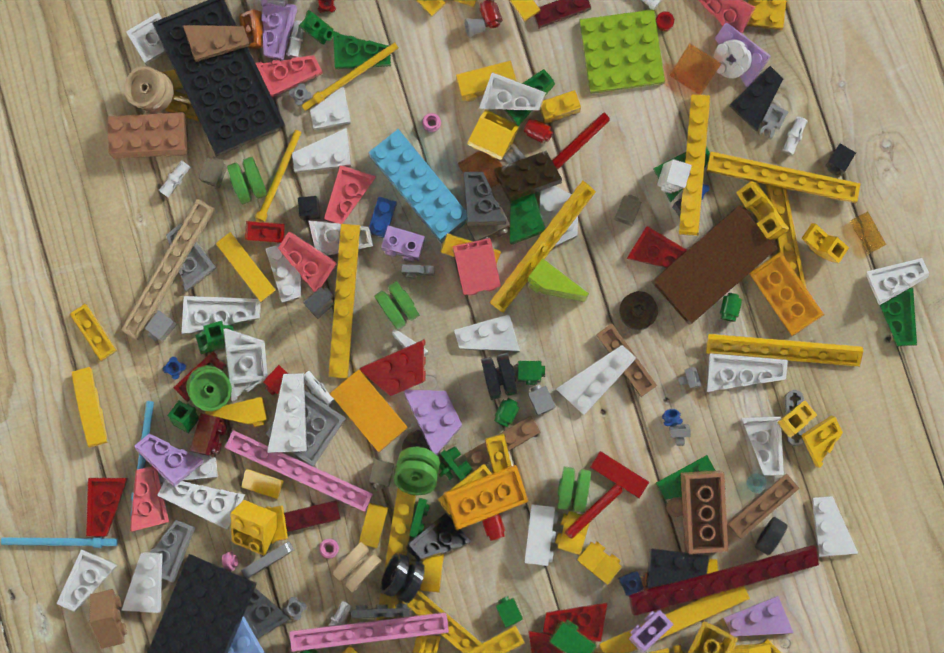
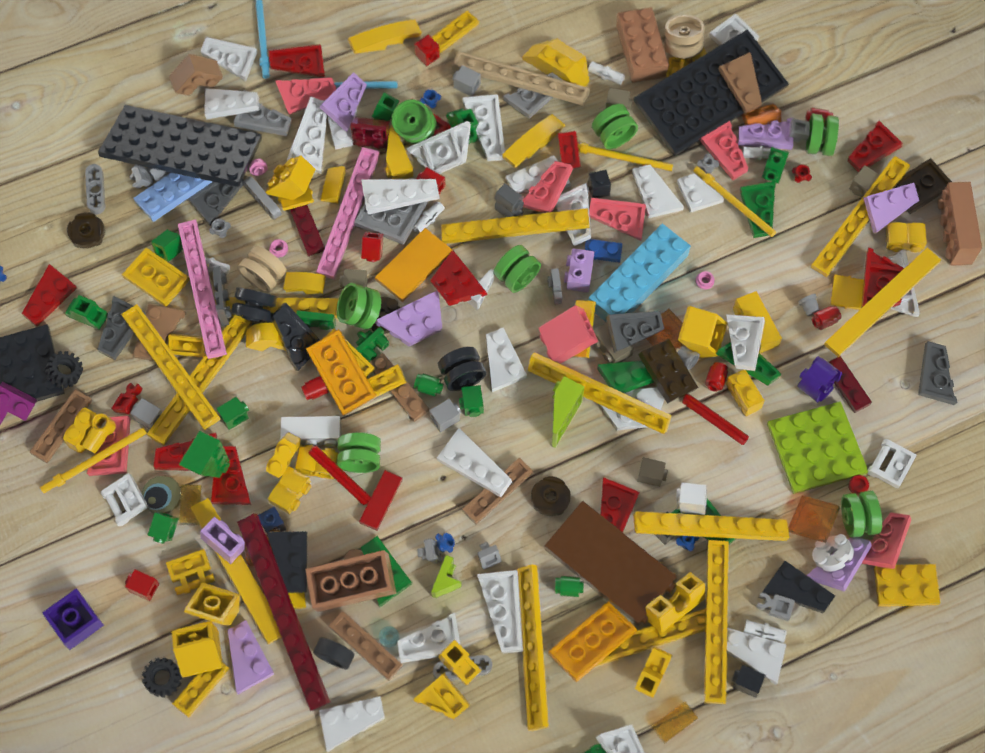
camera: 75 degrees right, 15 degrees down
(116, 363) = (427, 50): none -> red brick
(151, 225) = (559, 59): none -> yellow wedge
(345, 450) = (372, 246): none -> red brick
(558, 33) = (819, 379): none -> dark purple brick
(566, 564) = (283, 455): none -> yellow brick
(700, 24) = (861, 514): none -> bright green wheel
(713, 425) = (444, 583): none -> lime slope
(814, 146) = (758, 653): none -> white wing

